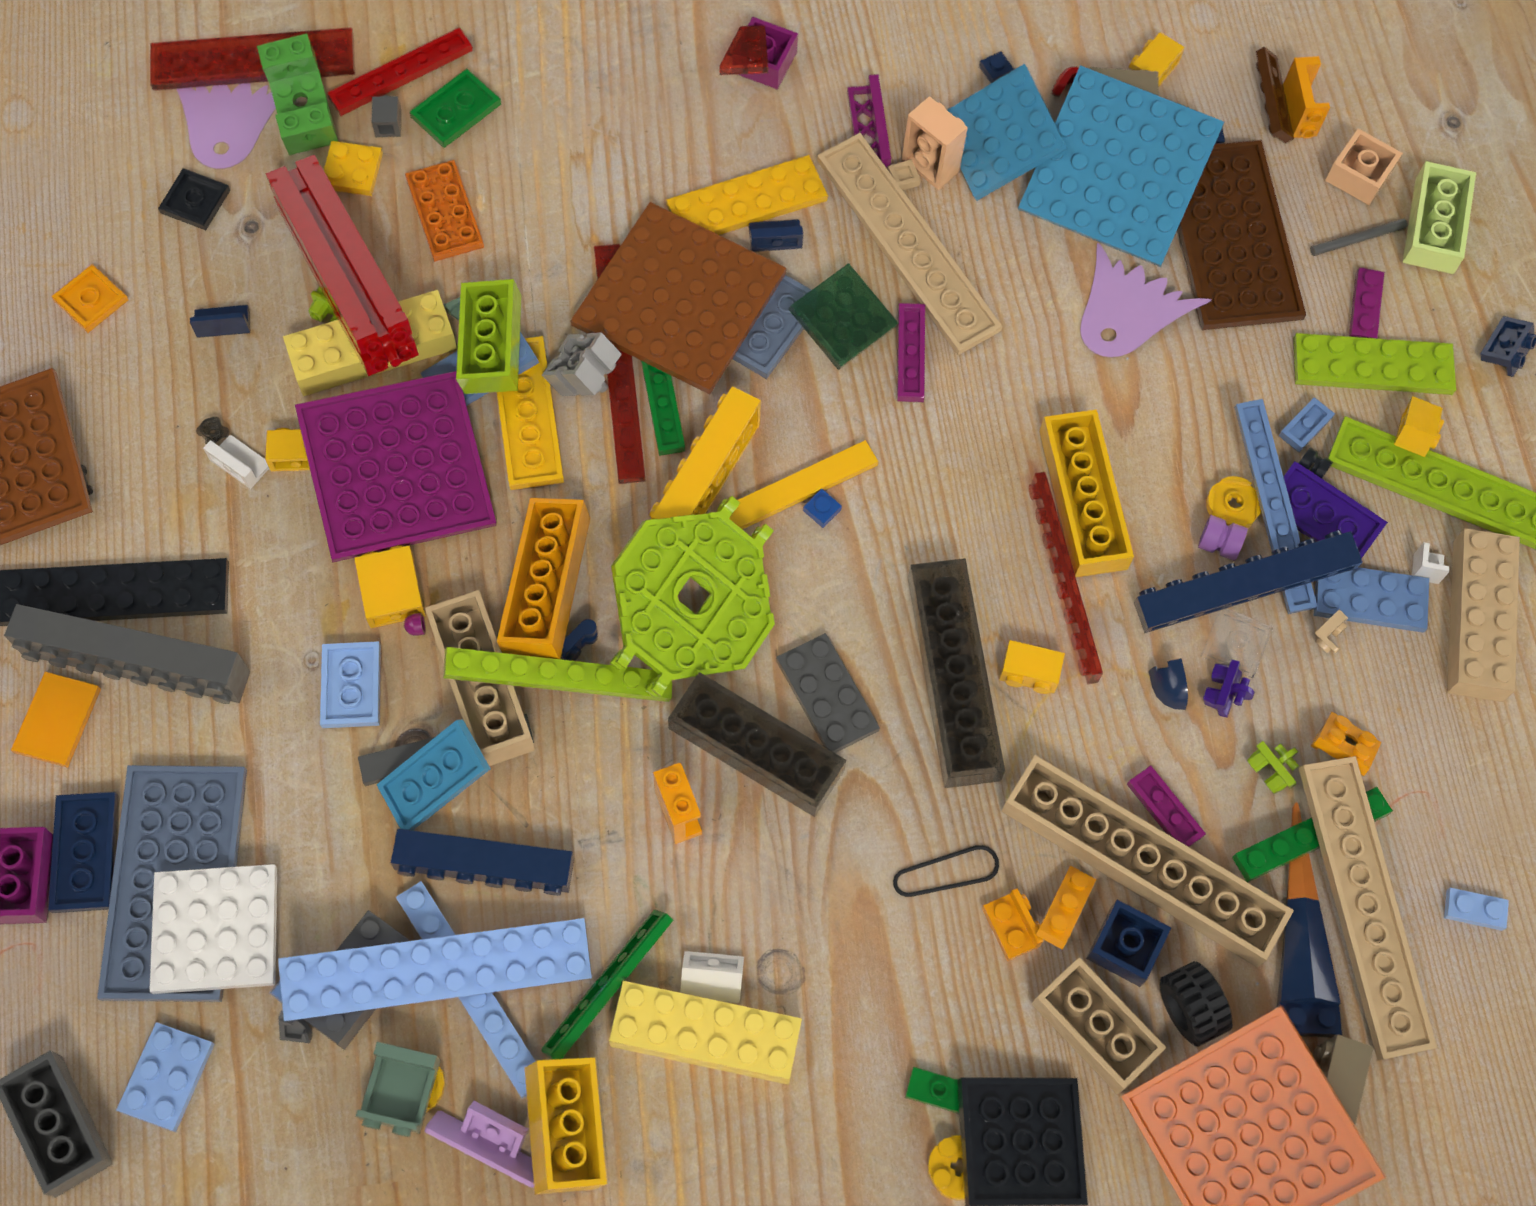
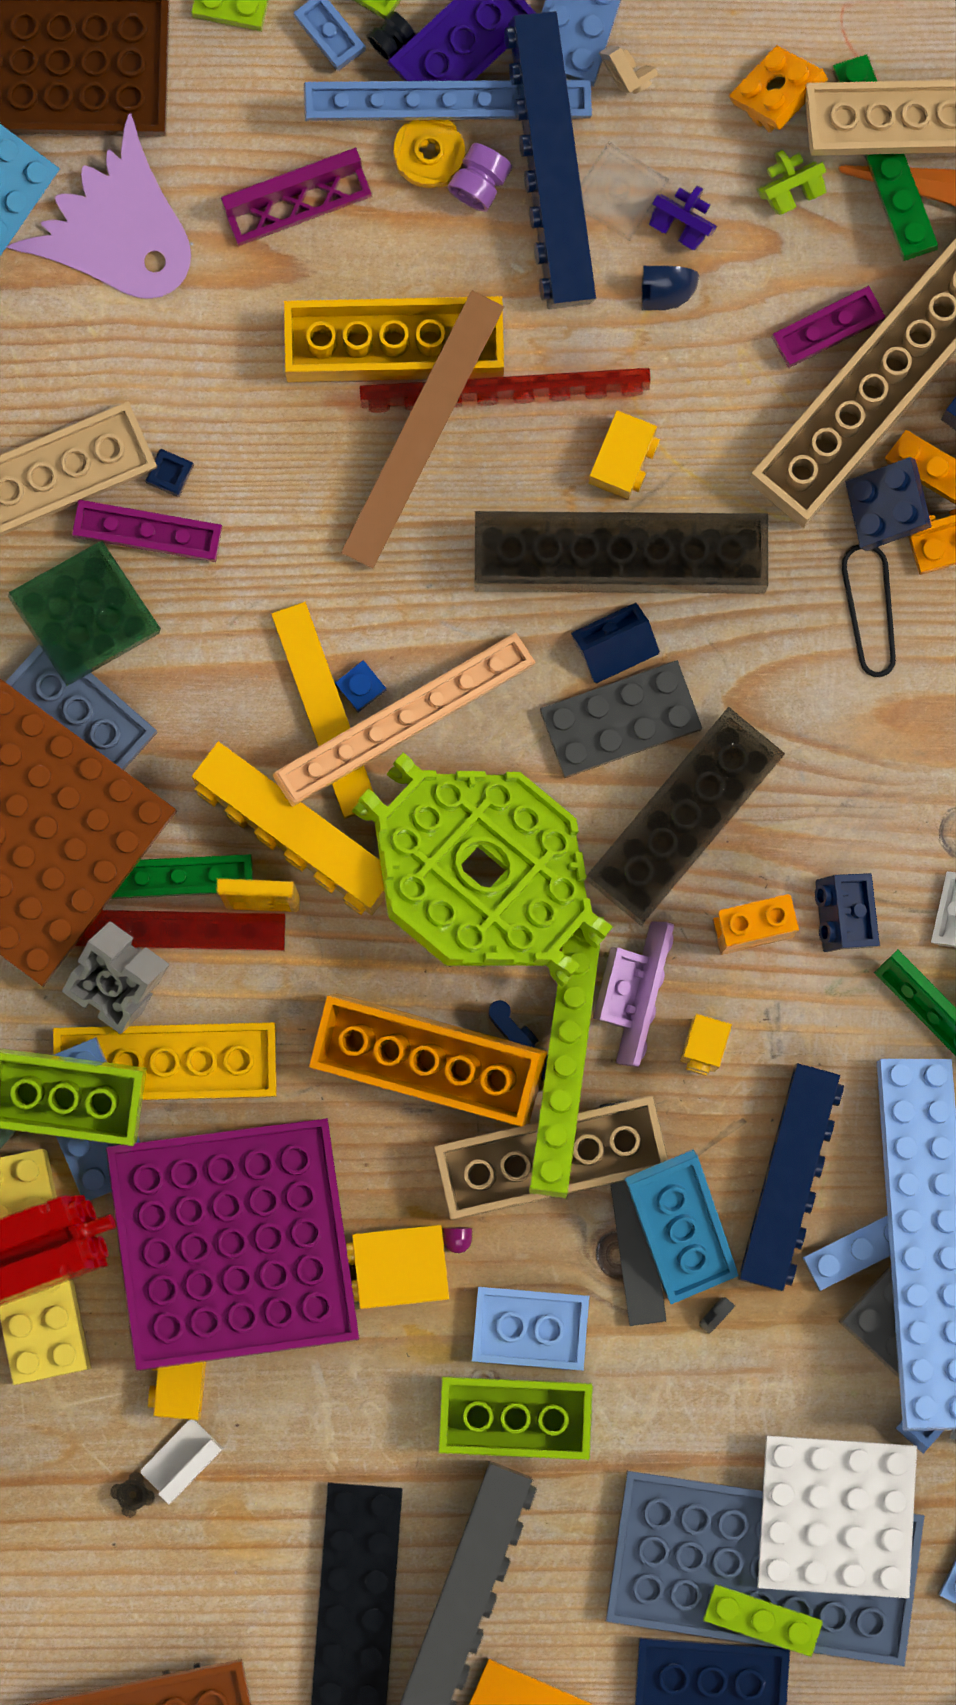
camera: 80 degrees left, 15 degrees up
(130, 881) = (762, 1620): none -> lime plate
(279, 678) = (515, 1418): none -> lime brick
(372, 821) = (716, 1314): none -> dark grey tile
(579, 779) = (705, 1044): none -> yellow brick
(617, 722) = (631, 991): none -> lavender bracket
(650, 439) = (258, 895): none -> yellow tile
(700, 881) = (847, 912): none -> dark blue bracket
(800, 531) = (403, 719): none -> light nougat tile
(885, 681) = (616, 642): none -> dark blue panel
(956, 363) = (170, 473): none -> dark blue tile
(1022, 516) = (422, 429): none -> medium nougat tile
(1032, 868) = (888, 504): none -> dark blue plate
(1185, 412) = (291, 184): none -> magenta fence

